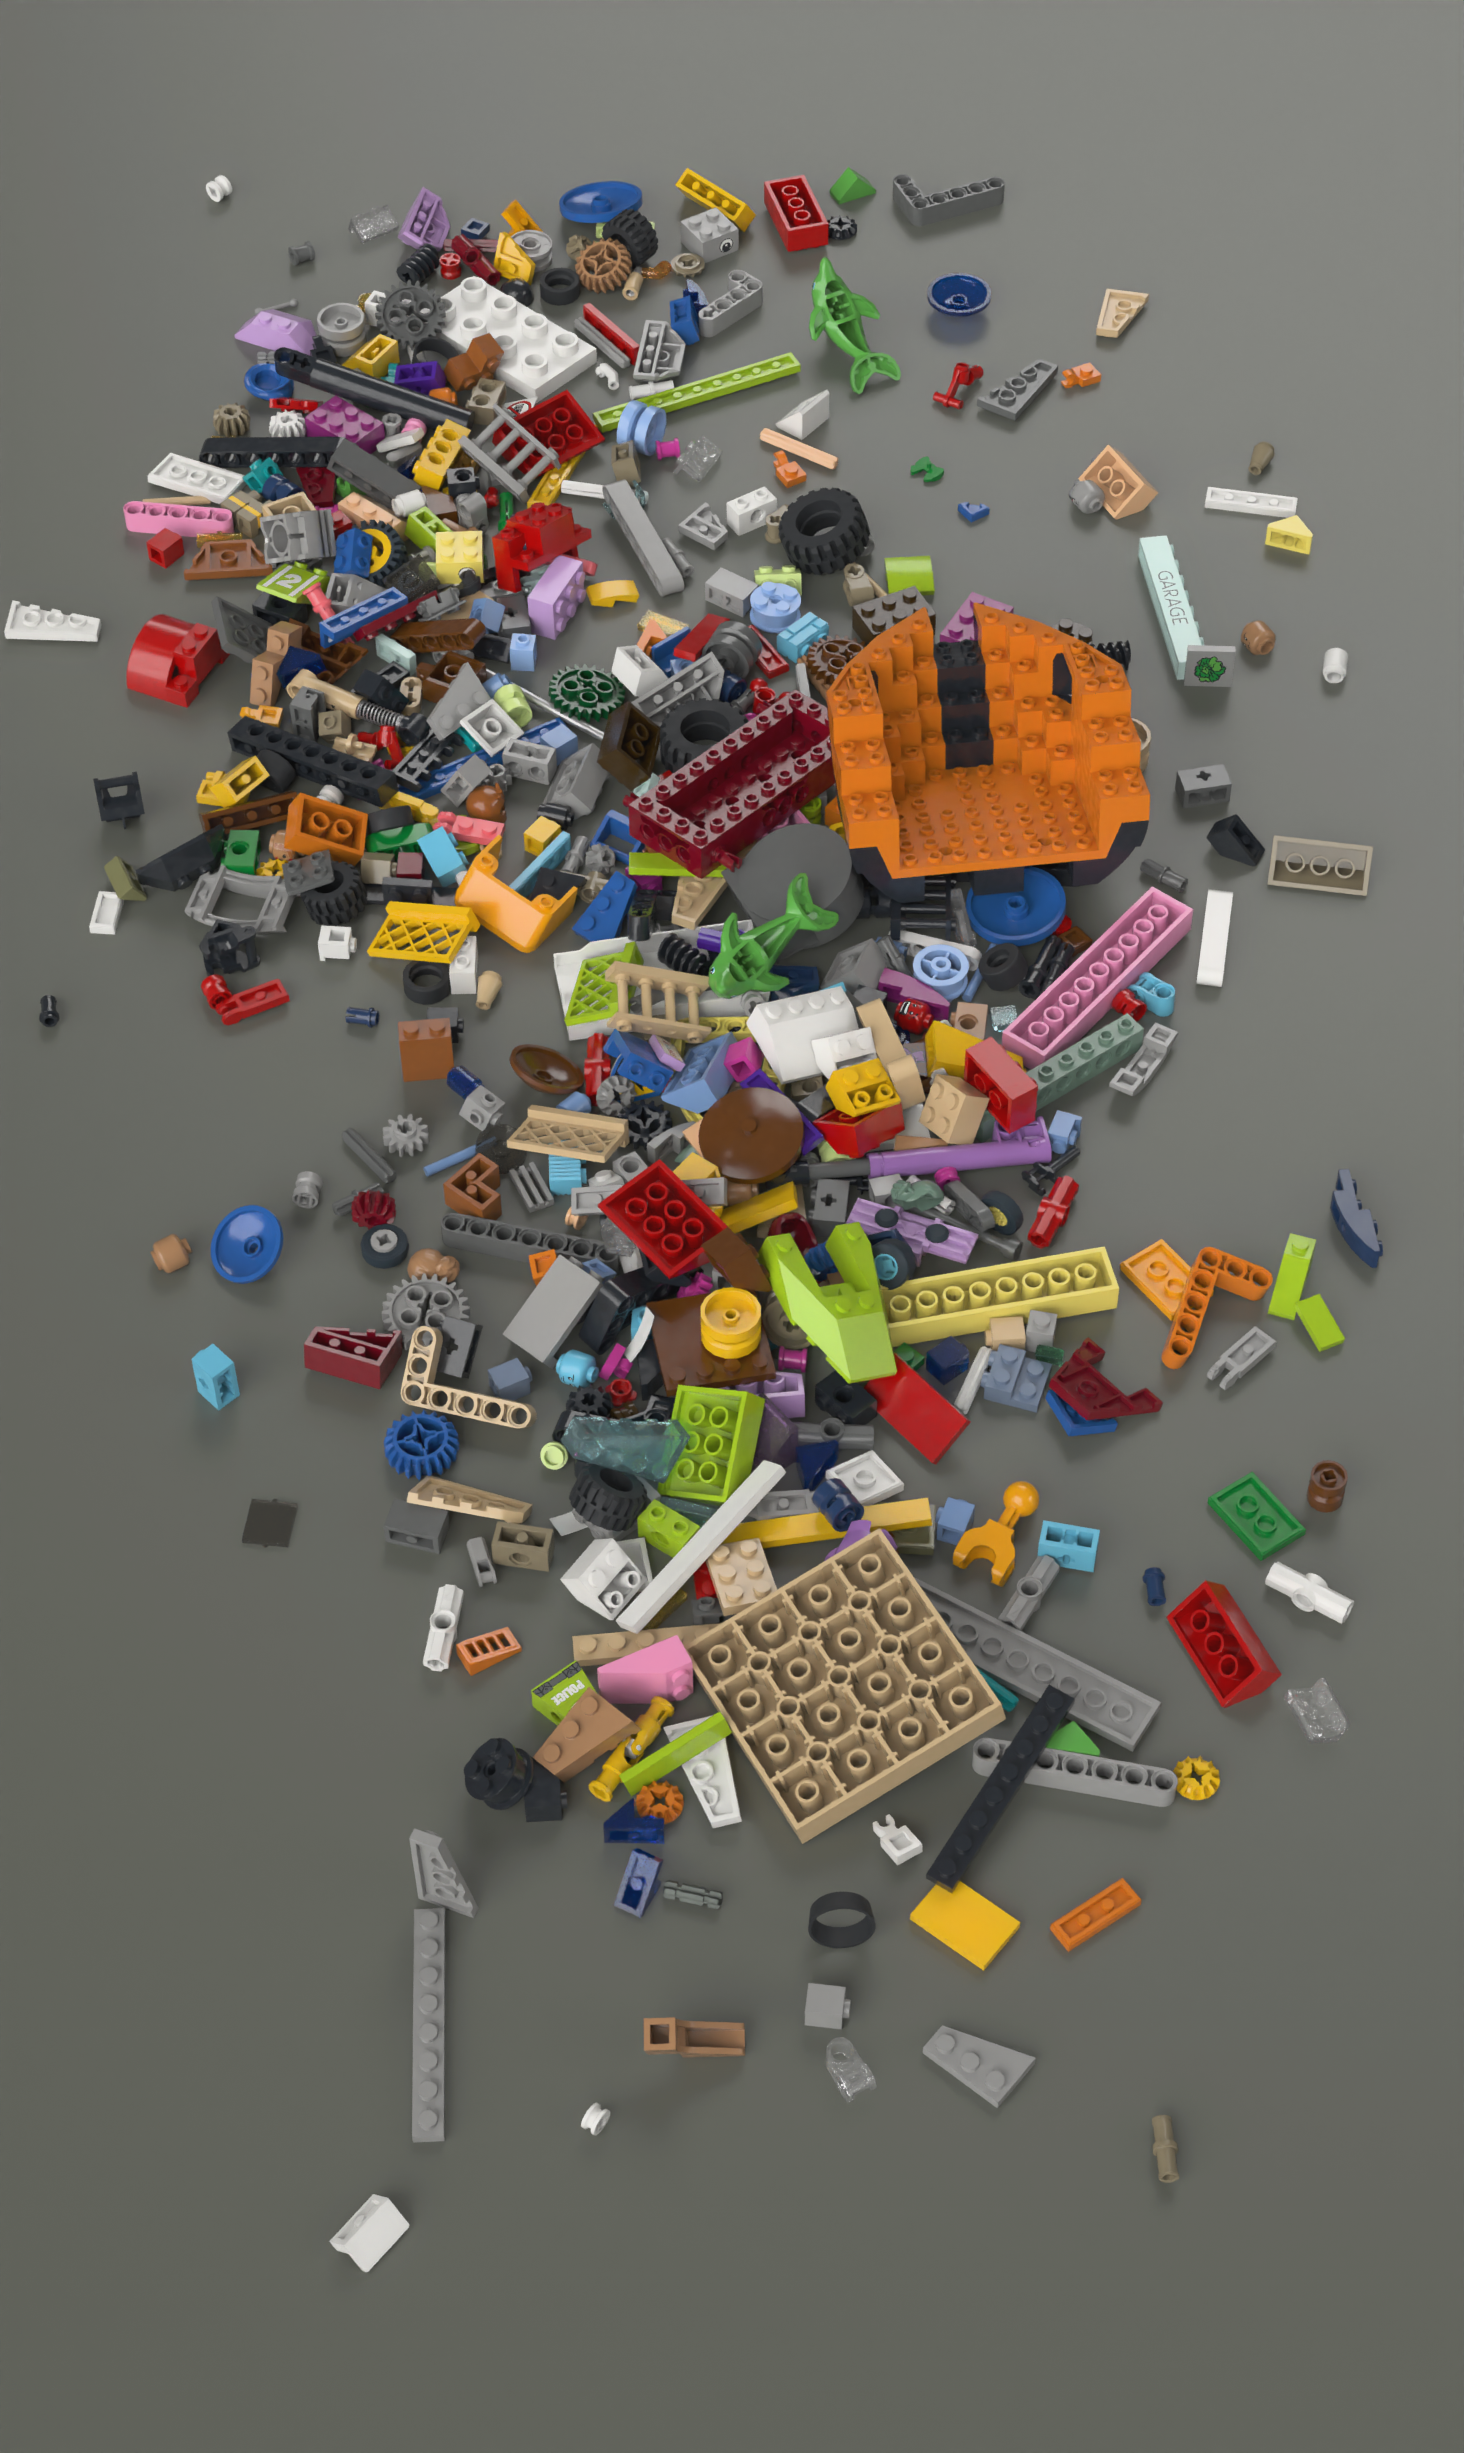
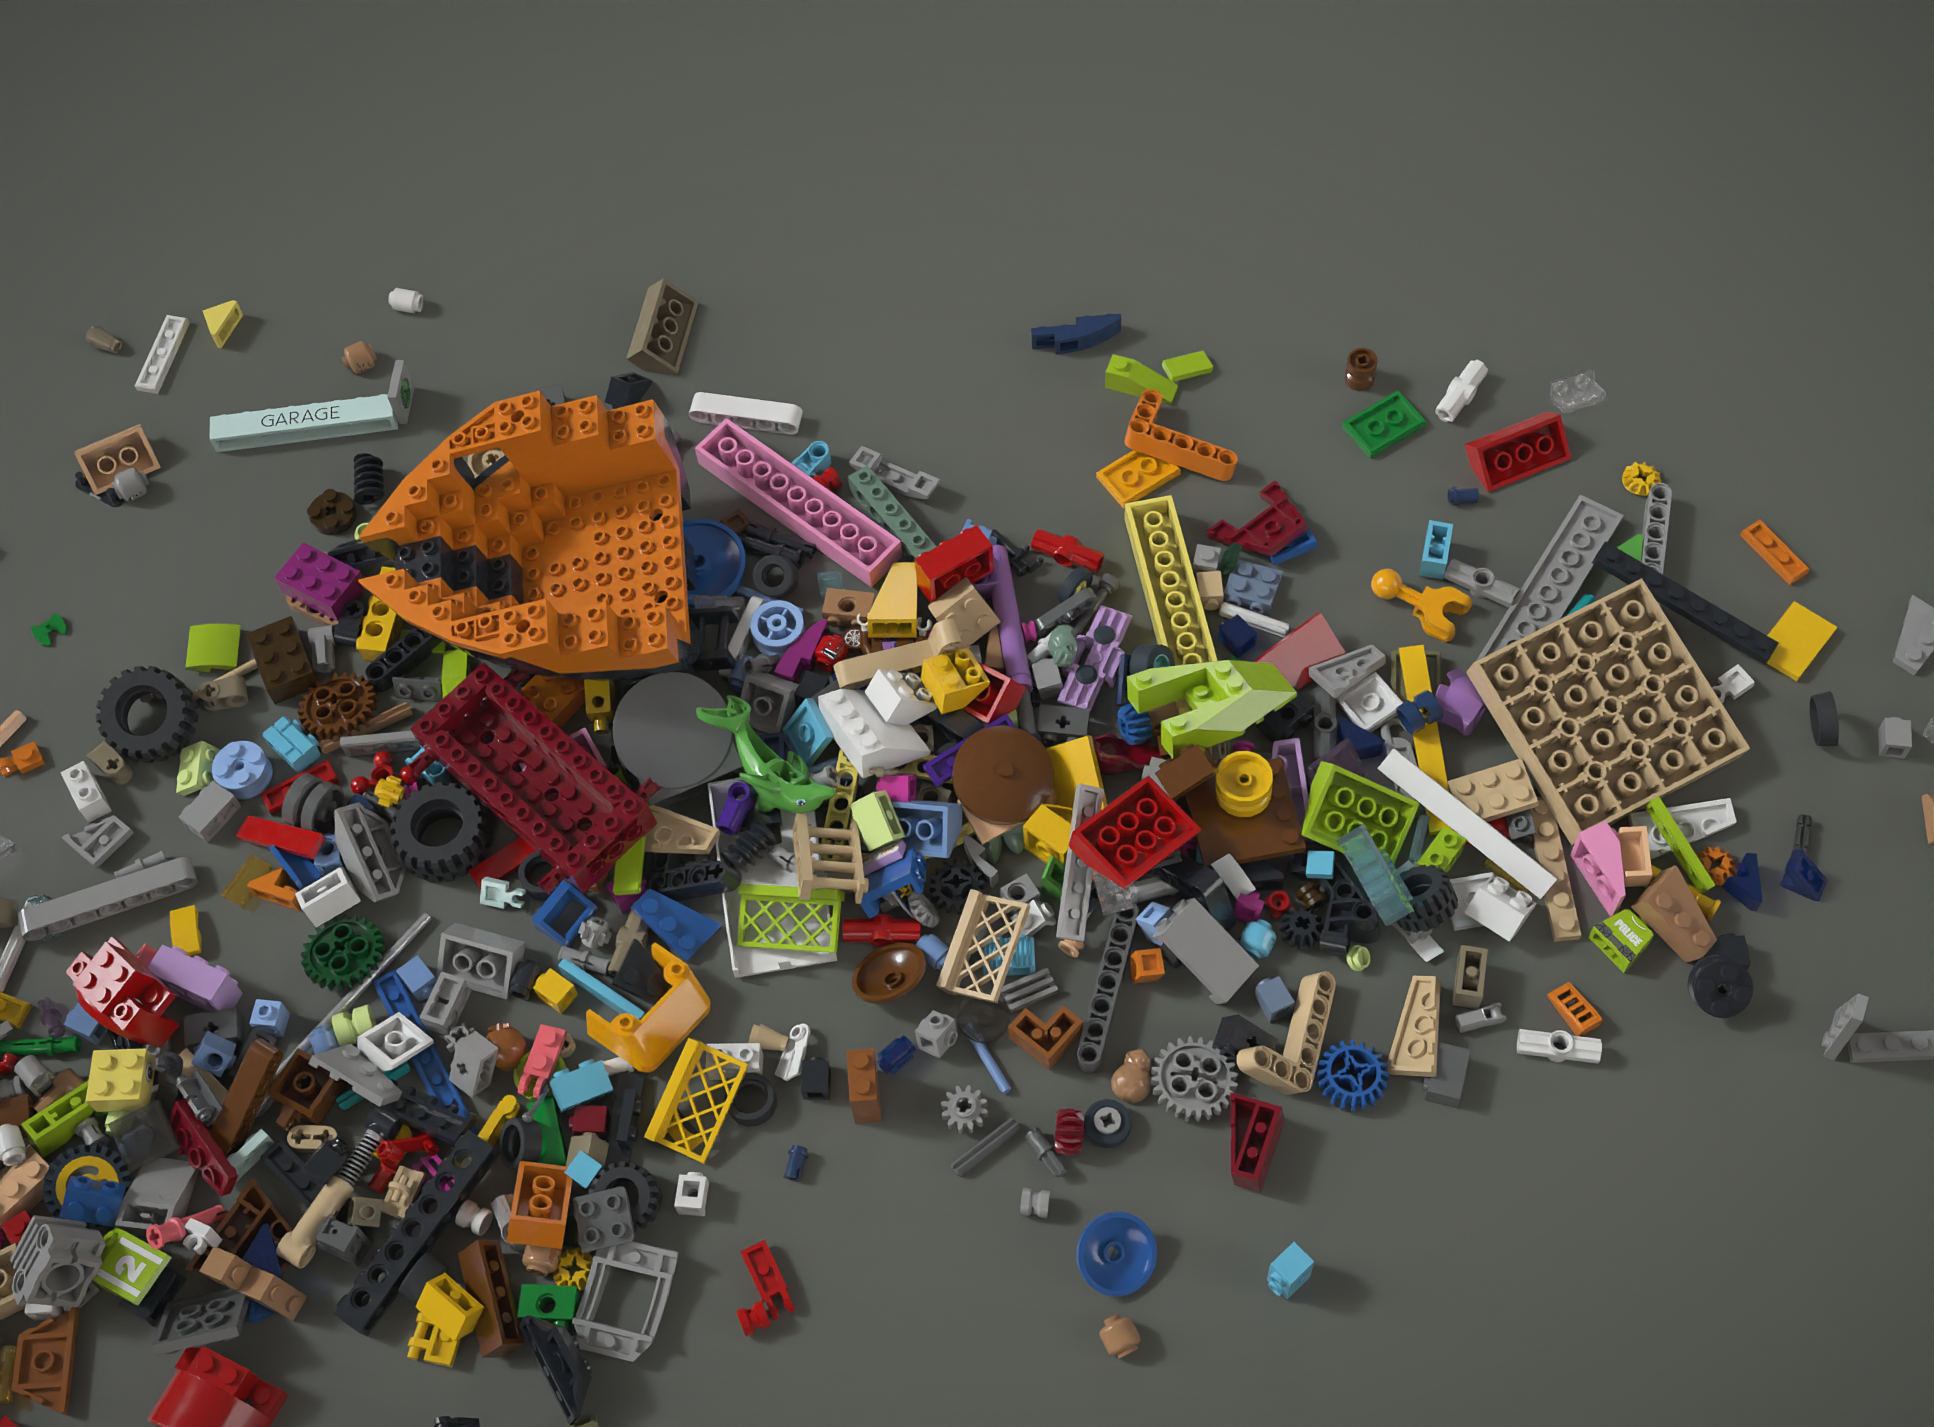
camera: 85 degrees left, 10 degrees up
(222, 945) = (697, 1308): black piece -> none
(265, 714) = (326, 1297): light orange plate -> none
(269, 1523) = (1445, 1216): clear smoke piece -> none
(312, 622) = (200, 1234): none -> white tile
(350, 620) = (204, 1180): blue fence -> none
(356, 854) = (584, 1169): none -> medium azure tile
(407, 813) = (528, 1116): none -> dark grey hinge
(470, 1009) = (791, 1059): none -> white piece
(629, 746) = (443, 901): dark brown brick -> none
(651, 1408) = (1320, 864): none -> medium azure tile
(654, 1702) = (1635, 856): none -> light nougat panel
(701, 1040) = (877, 820): none -> yellowish green brick
(744, 698) = (389, 791): none -> yellow gear
(749, 1034) = (880, 771): none -> dark tan piece
(903, 1454) = (1347, 670): none -> light grey wing
(954, 1520) = (1409, 632): medium blue brick -> none
(973, 512) = (123, 590): blue tile -> none
(1242, 1356) = (1224, 422): light grey hinge -> none

